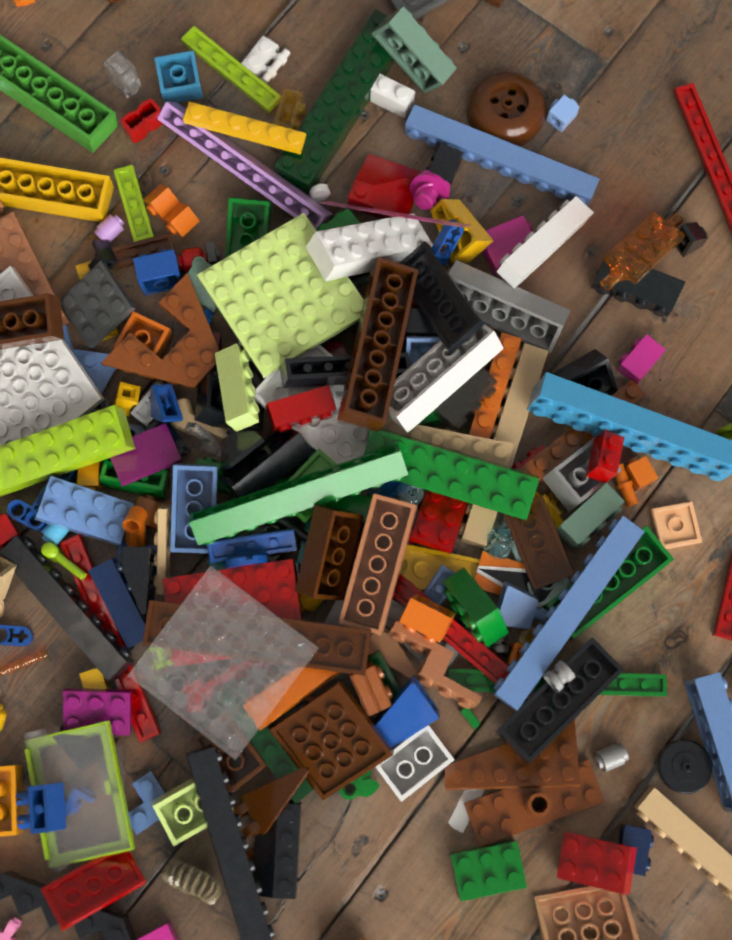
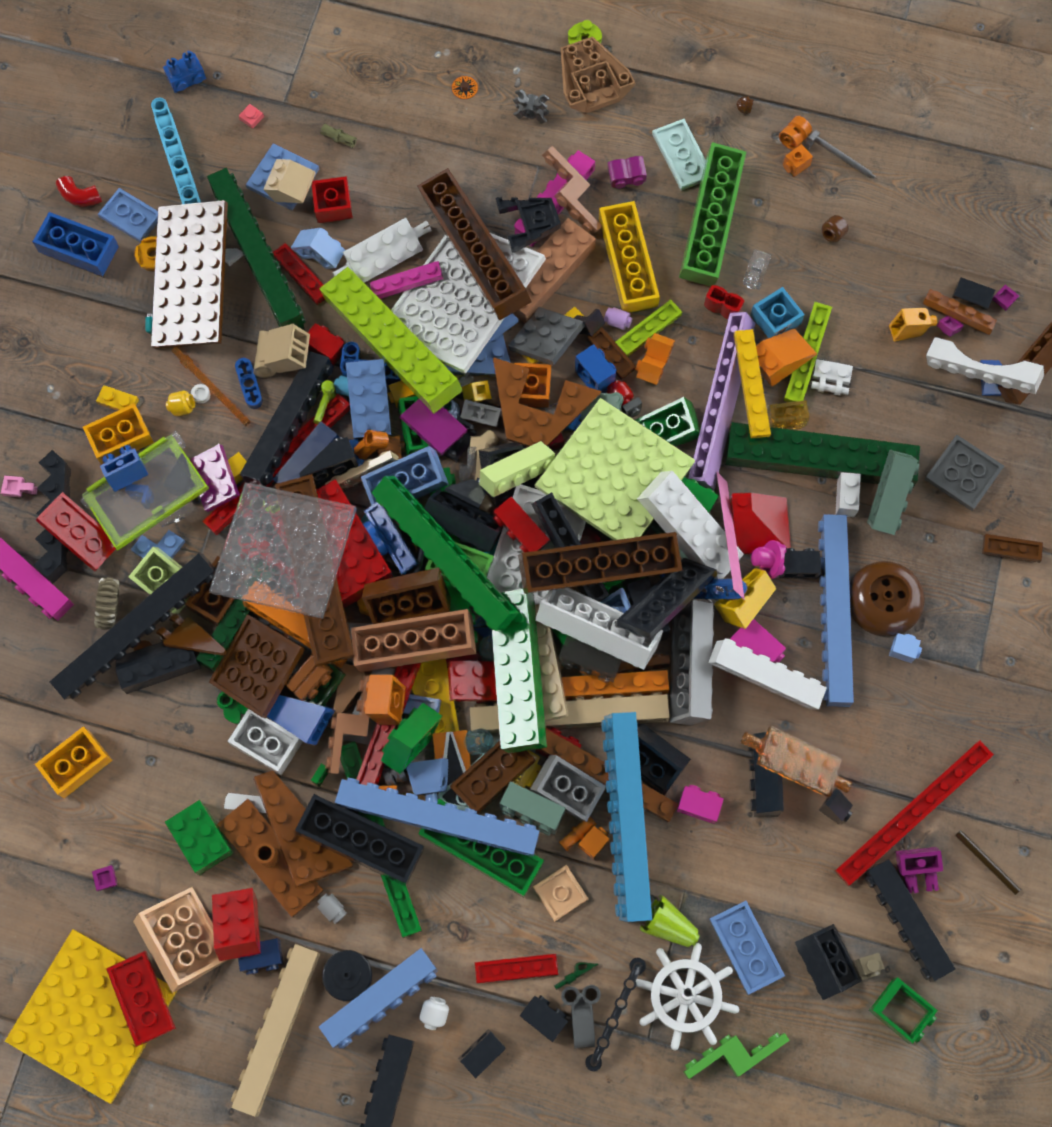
camera: 70 degrees right, 5 degrees down
(164, 404) = (482, 422): blue slope -> none
(224, 88) = (783, 355): none -> orange slope
(319, 192) = (729, 470): white tile -> none
(559, 676) = (376, 826): light grey wheel -> none
(605, 456) = (588, 797): red brick -> none

